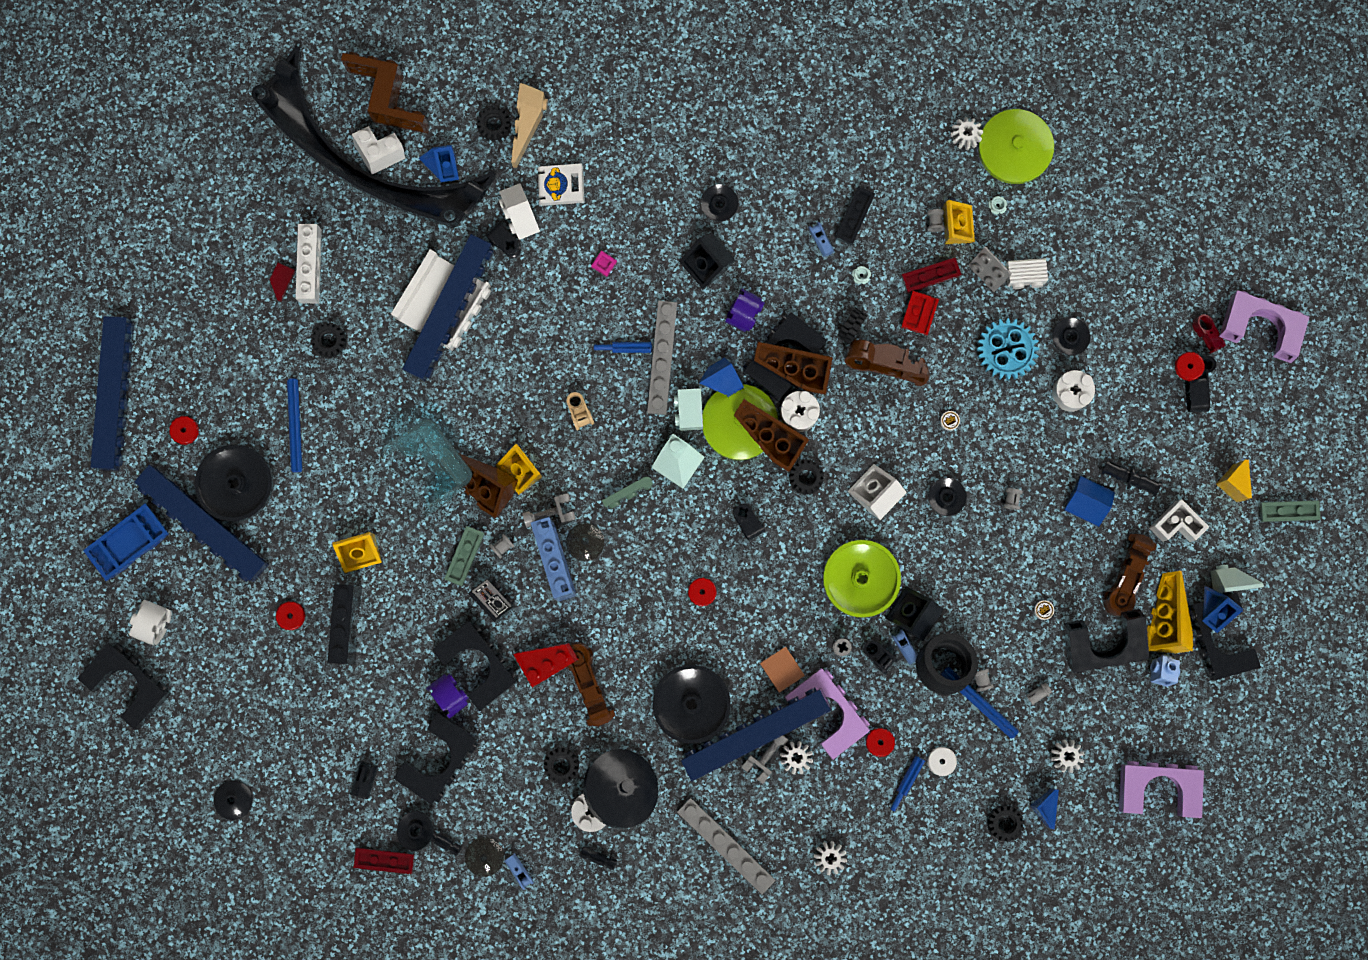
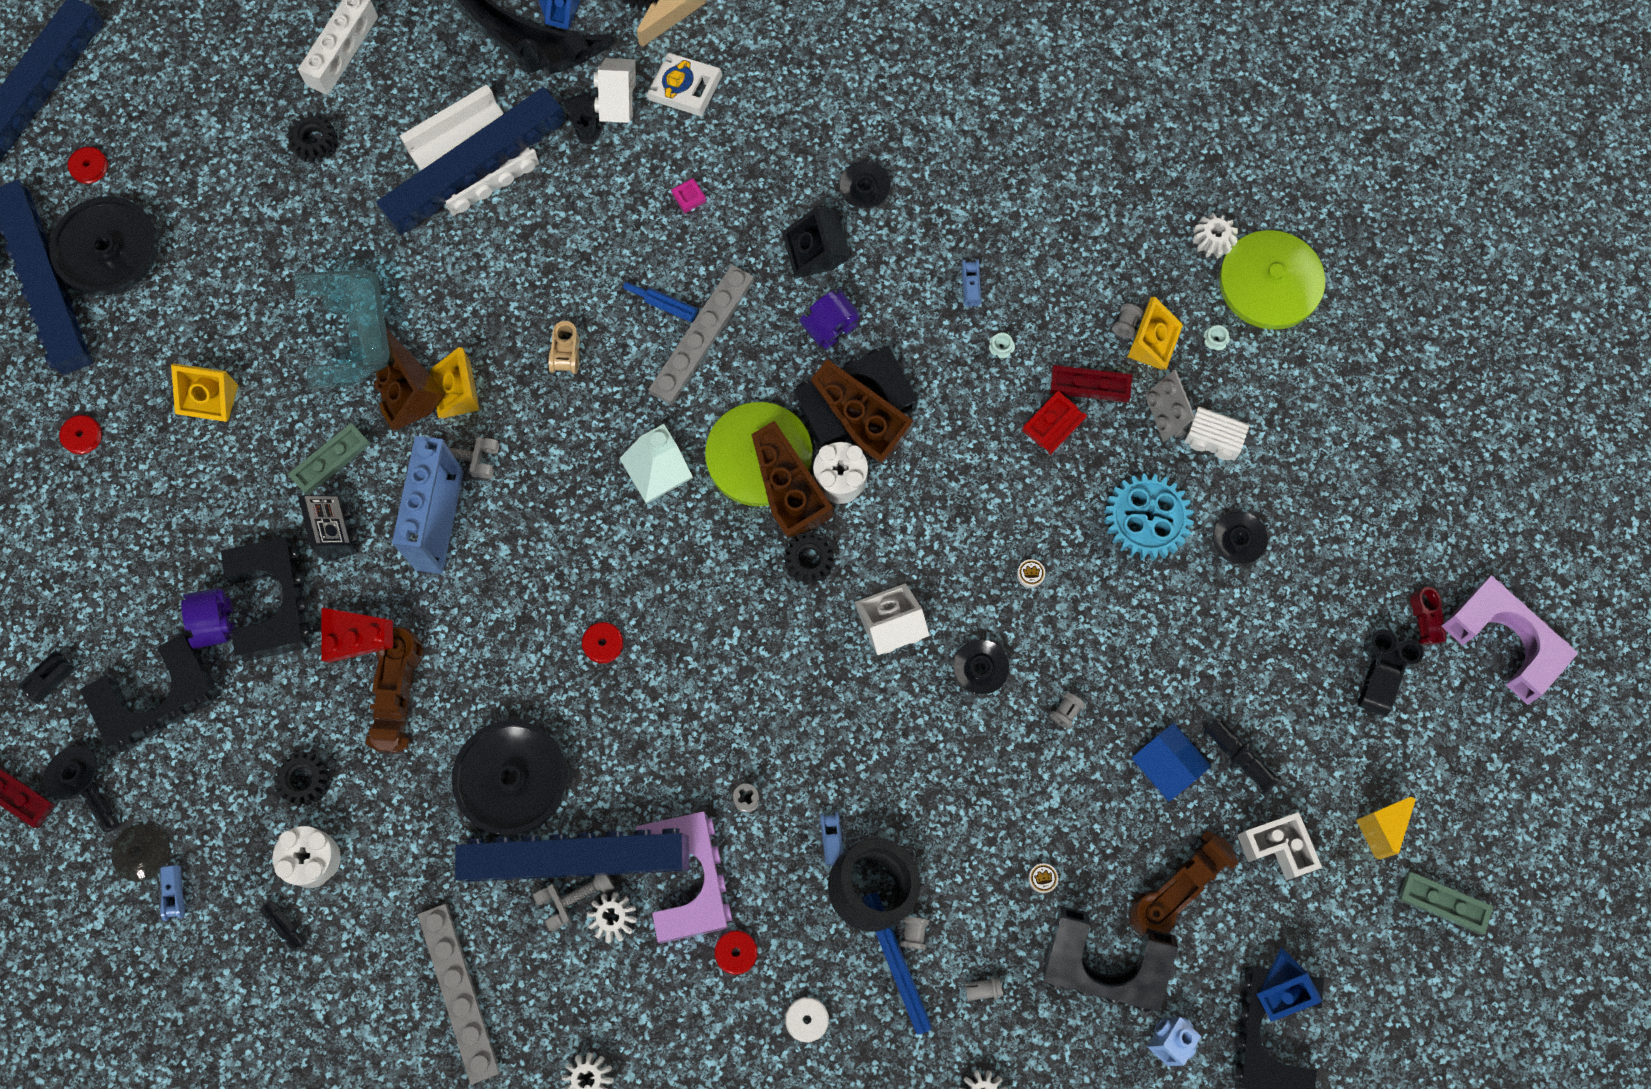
camera: 25 degrees right, 10 degrees down
(281, 280) = (296, 50): dark red tile -> none
(294, 425) = (216, 216): blue axle -> none
(340, 640) = (106, 487): black arch -> none
(501, 546) = (381, 467): light grey bush -> none
(594, 546) = (495, 522): clear smoke dish -> none
(620, 788) = (357, 844): black dish -> none
(628, 492) = (571, 473): sand green plate -> none
(690, 409) = (700, 403): light aqua brick -> none
(722, 378) = (761, 389): blue slope -> none
(751, 525) = (705, 582): black piece -> none
(782, 669) = (653, 791): nougat piece -> none
(852, 325) = (959, 396): black tyre -> none
(855, 216) = (1027, 272): black plate -> none
(862, 578) = (816, 719): lime dish -> none
(879, 657) = (790, 834): black piece -> none
(884, 358) = (982, 455): reddish brown piece -> none
(908, 781) = (746, 1024): blue axle -> none
(914, 613) = (865, 799): black slope -> none
(1082, 384) = (1227, 602): white brick -> none
(1171, 622) = (1213, 977): yellow wedge -> none
(1196, 362) = (1376, 650): red piece -> none
(1232, 579) = (1326, 959): light aqua slope -> none

